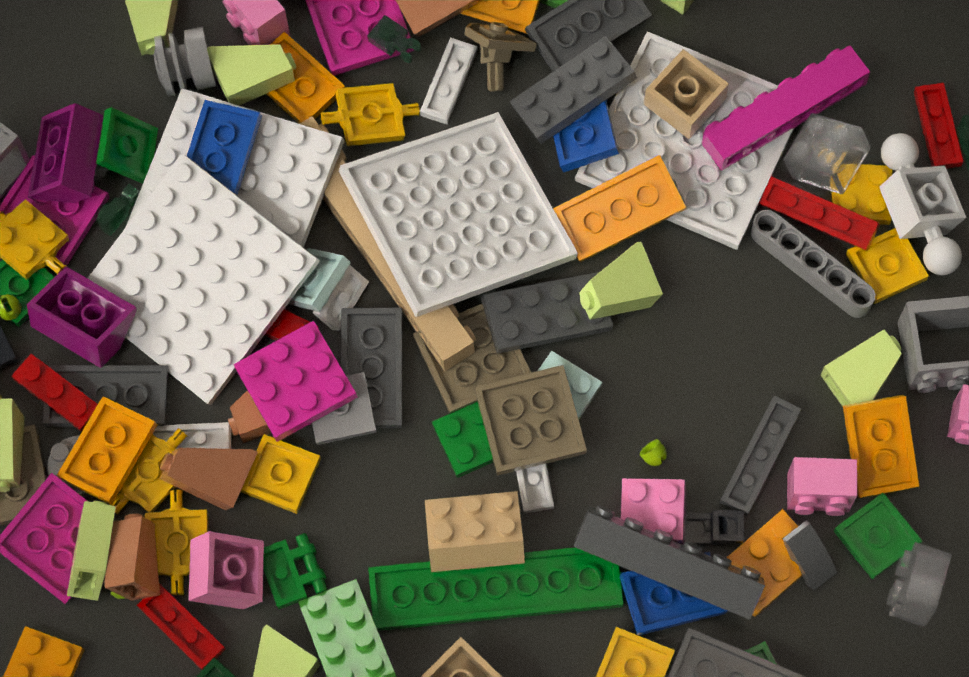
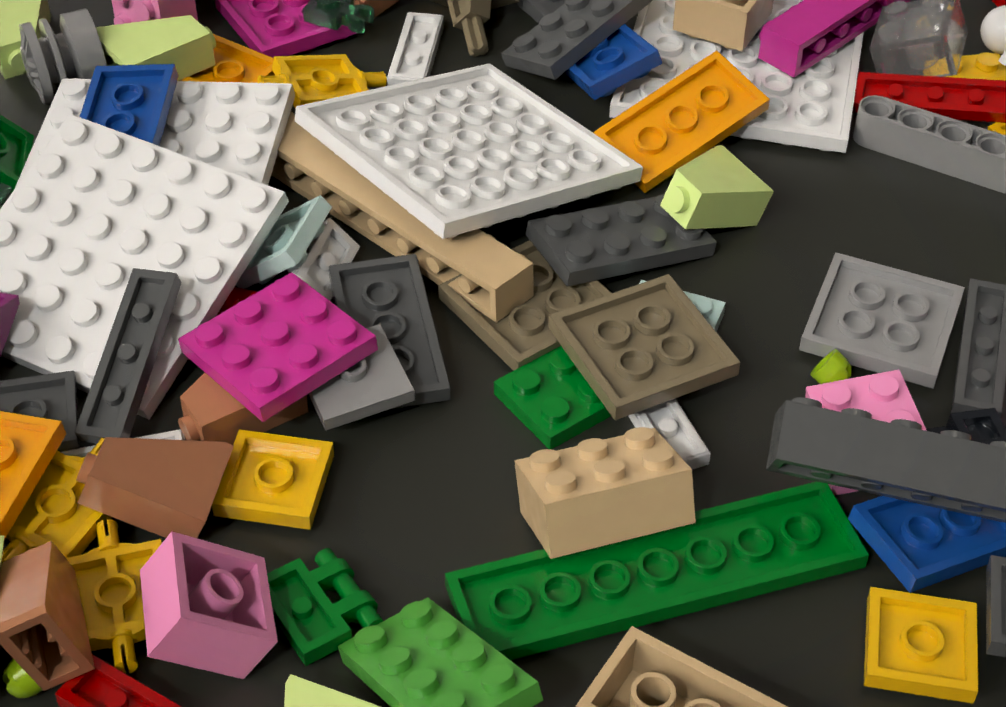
camera: 15 degrees left, 25 degrees down
(201, 371) = (128, 356): none -> dark grey plate
(703, 416) = (883, 319): none -> light grey plate

